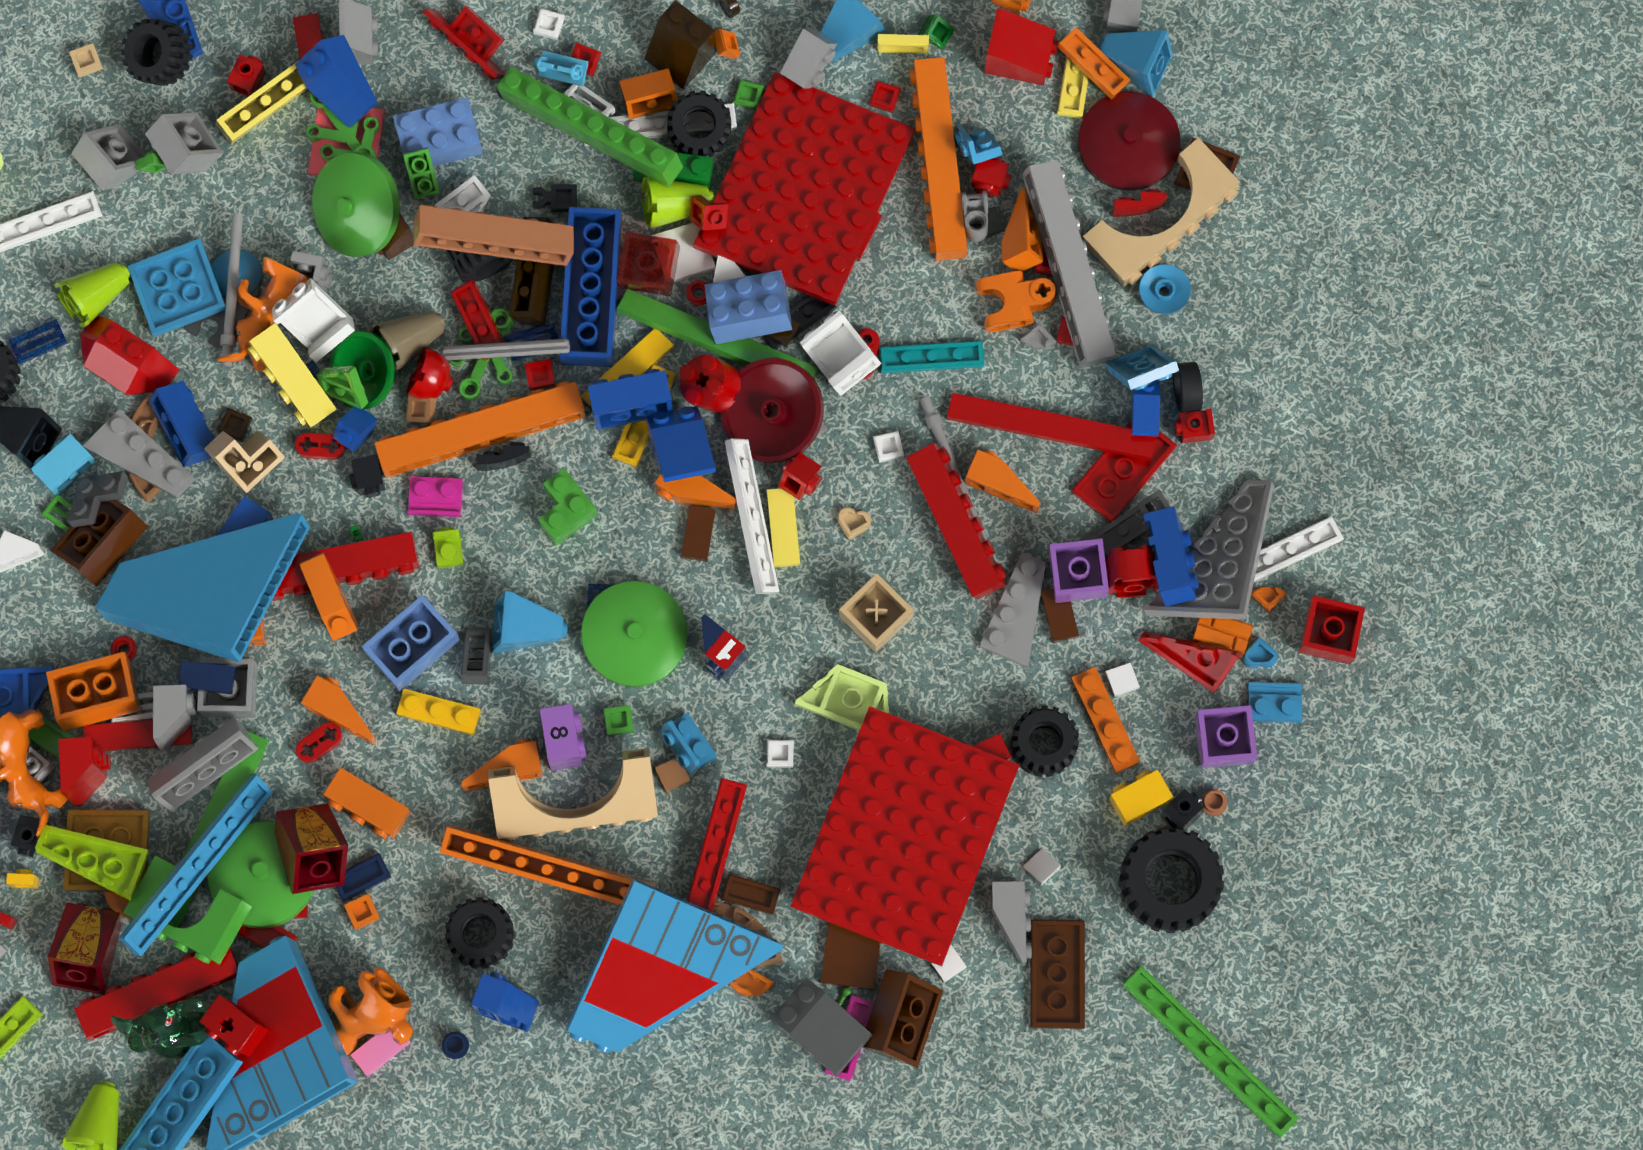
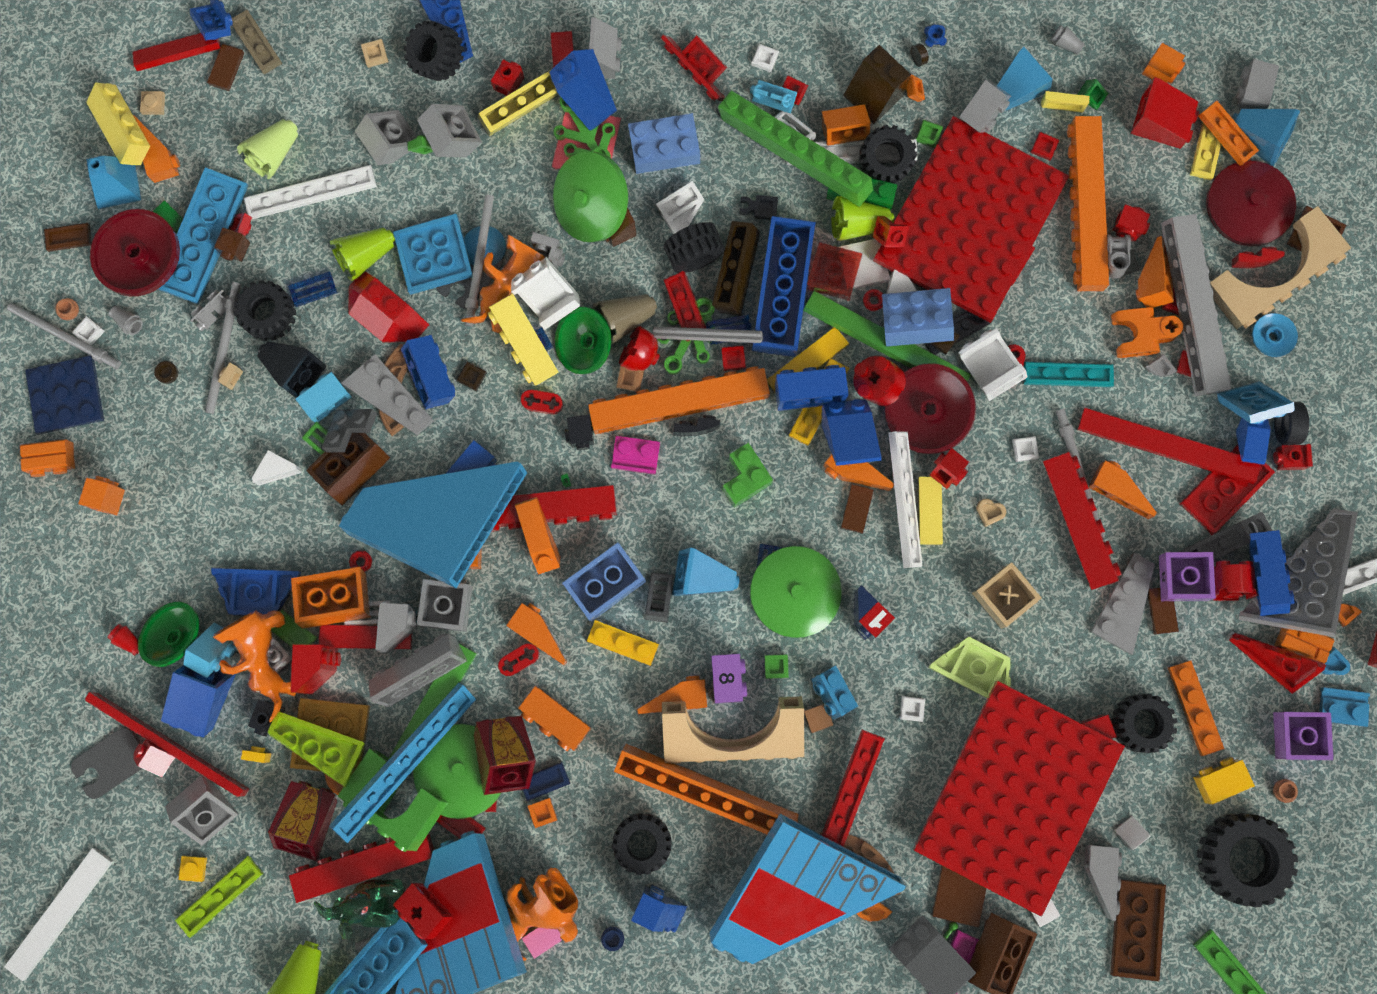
camera: 10 degrees right, 5 degrees up
(207, 677) = (427, 597): dark blue tile -> none
(244, 463) = (479, 411): tan brick -> none
(343, 384) = (566, 352): bright green wing -> none
(355, 428) = (572, 389): blue brick -> none
(421, 173) = (647, 175): bright green slope -> none
(448, 547) = (643, 500): lime bracket -> none
(493, 235) = (706, 234): nougat brick -> none
(751, 894) = (877, 831): reddish brown tile -> none
(977, 145) = (1124, 194): dark azure bracket -> none
(1122, 679) = (1213, 673): white tile -> none
(1183, 810) = (1260, 797): black brick -> none

